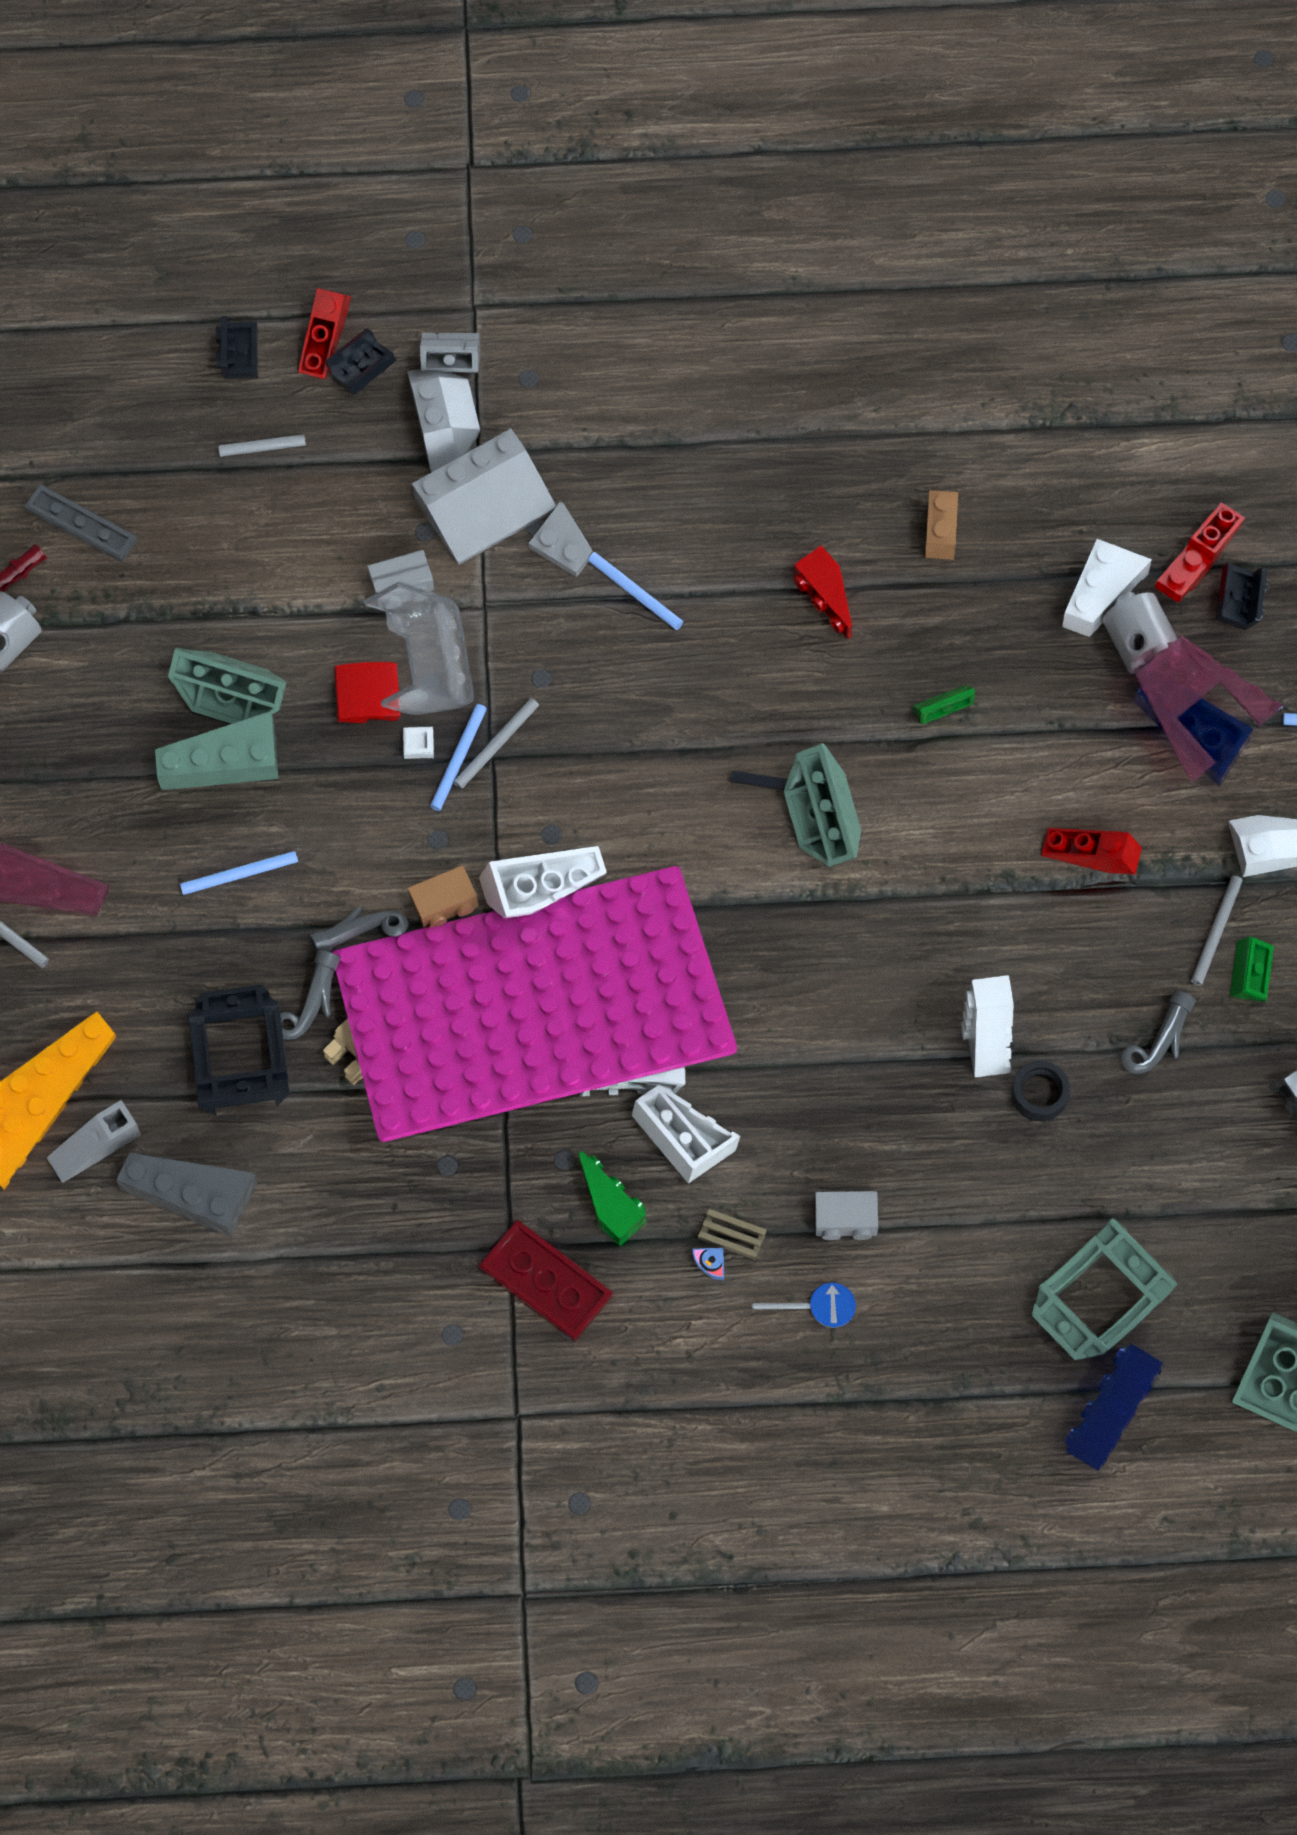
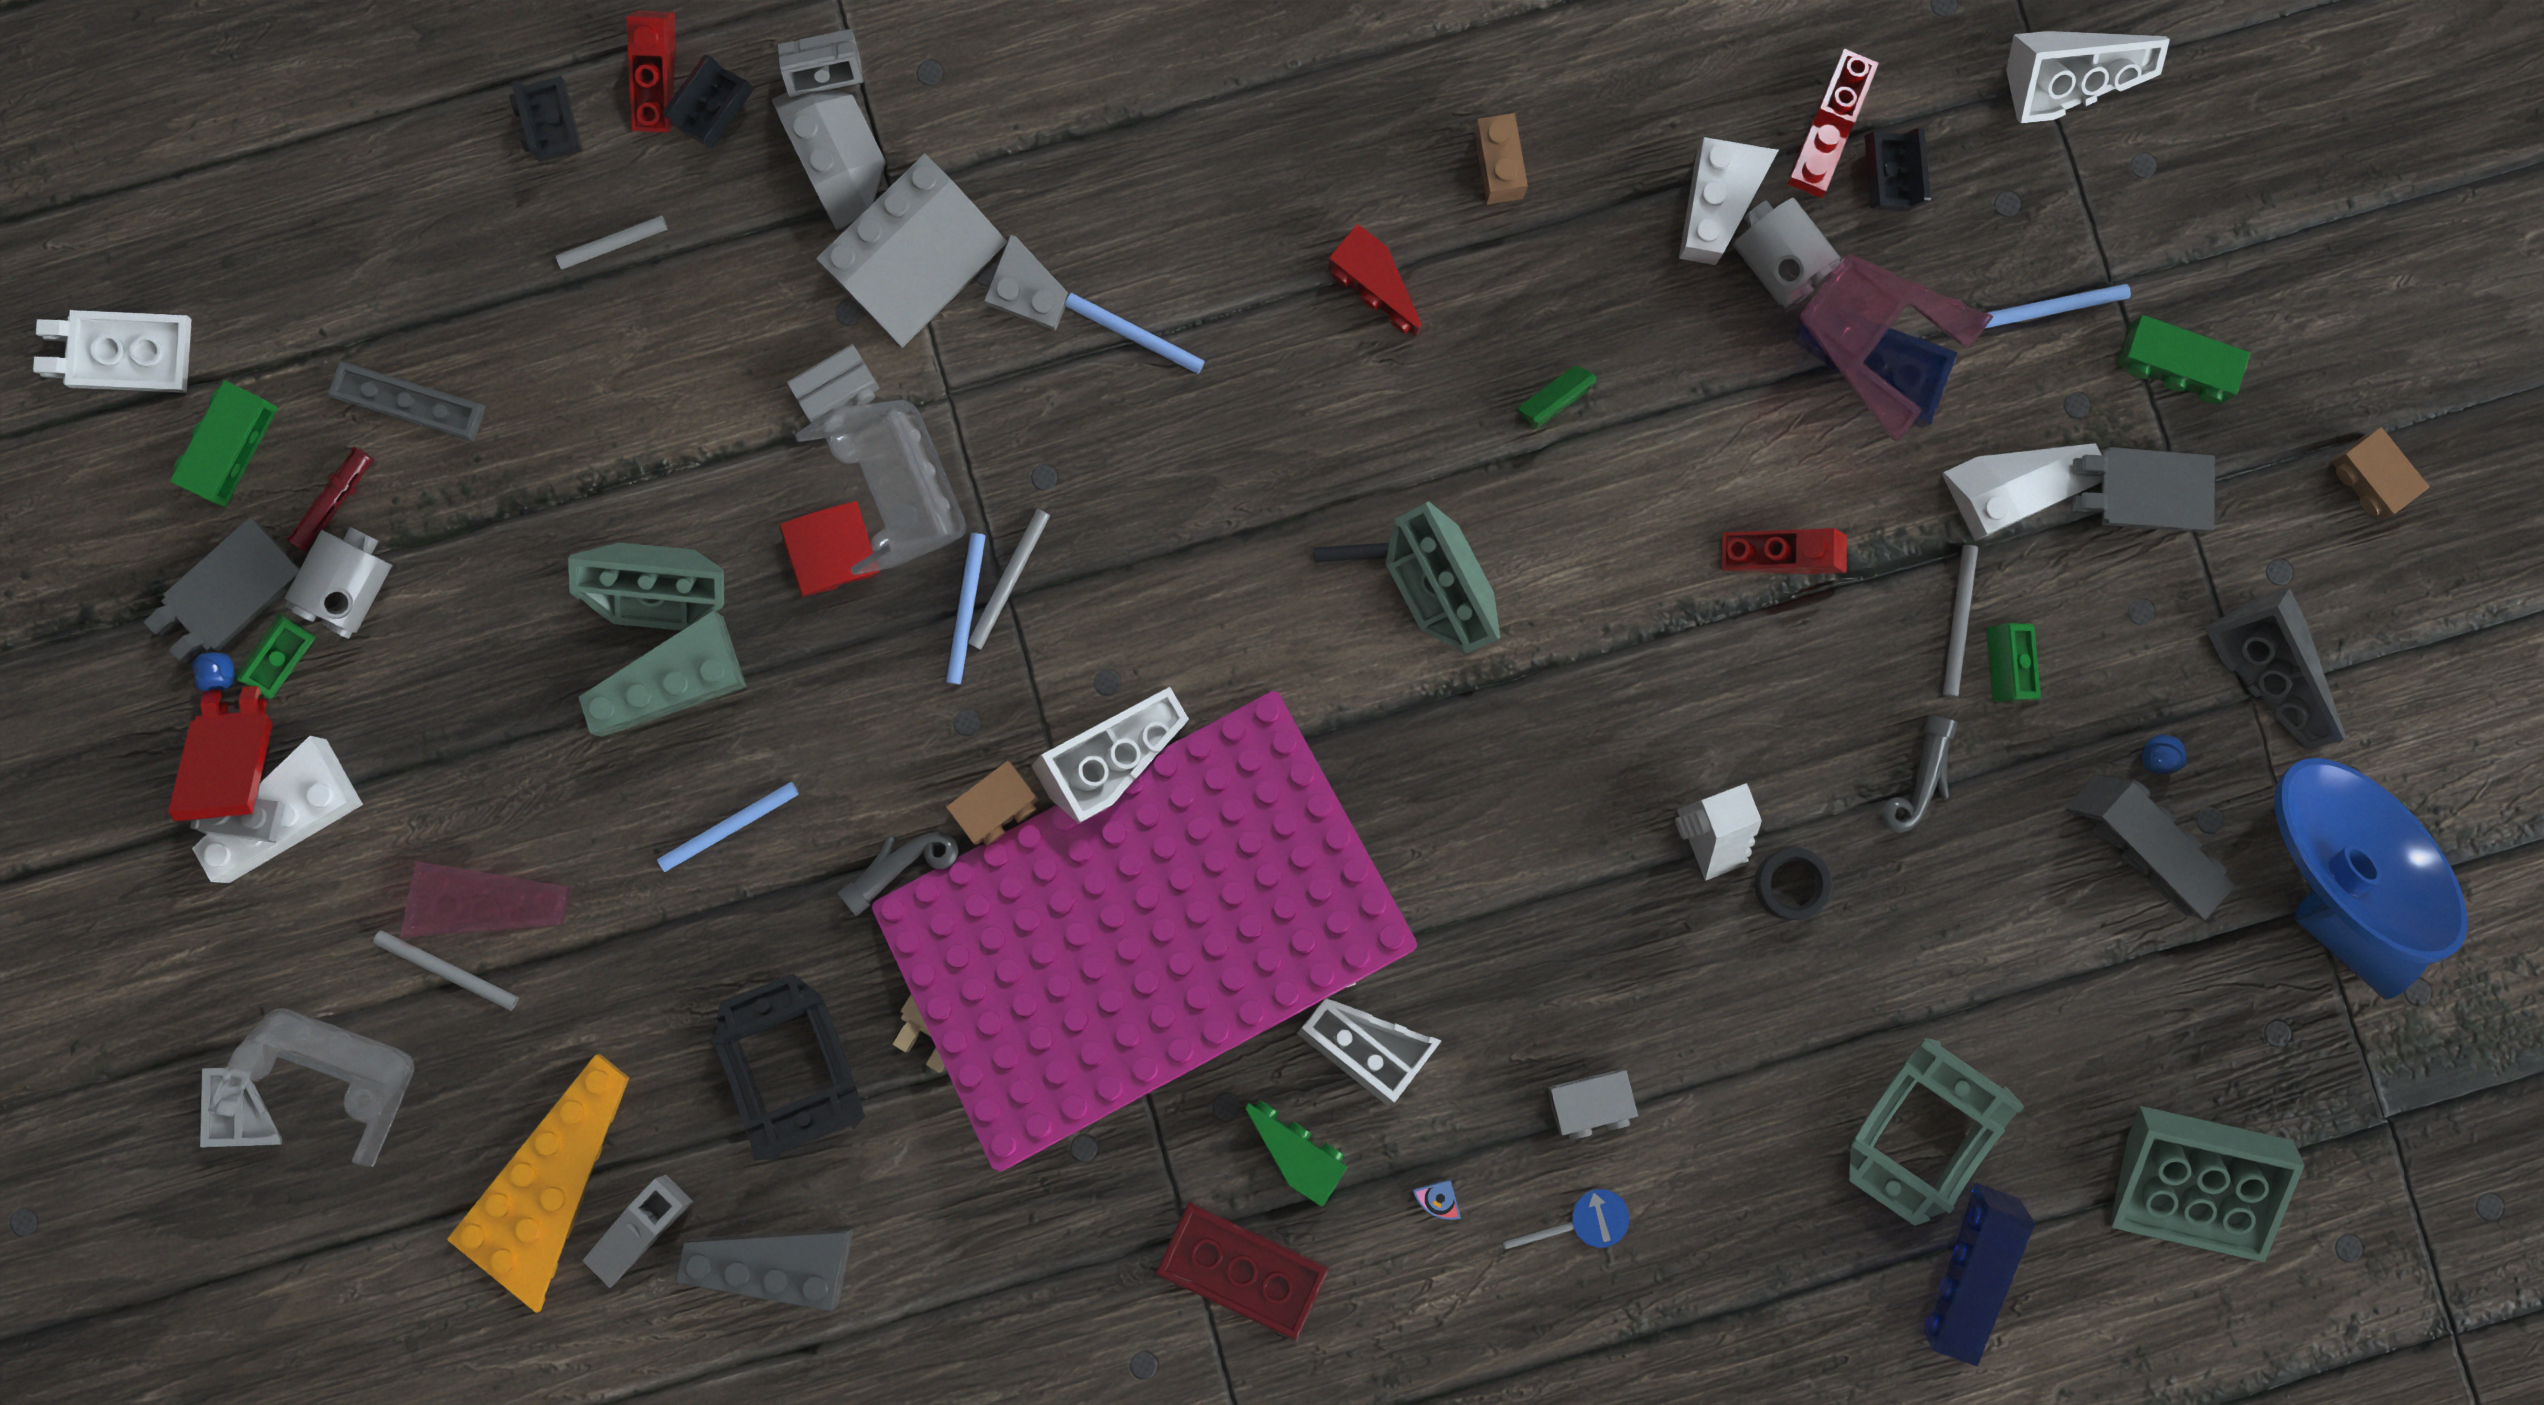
camera: 15 degrees left, 15 degrees up
(317, 994) = (868, 968): dark grey plant -> none
(418, 742) = (910, 600): white tile -> none
(736, 1223) = (1489, 1162): dark tan tile -> none

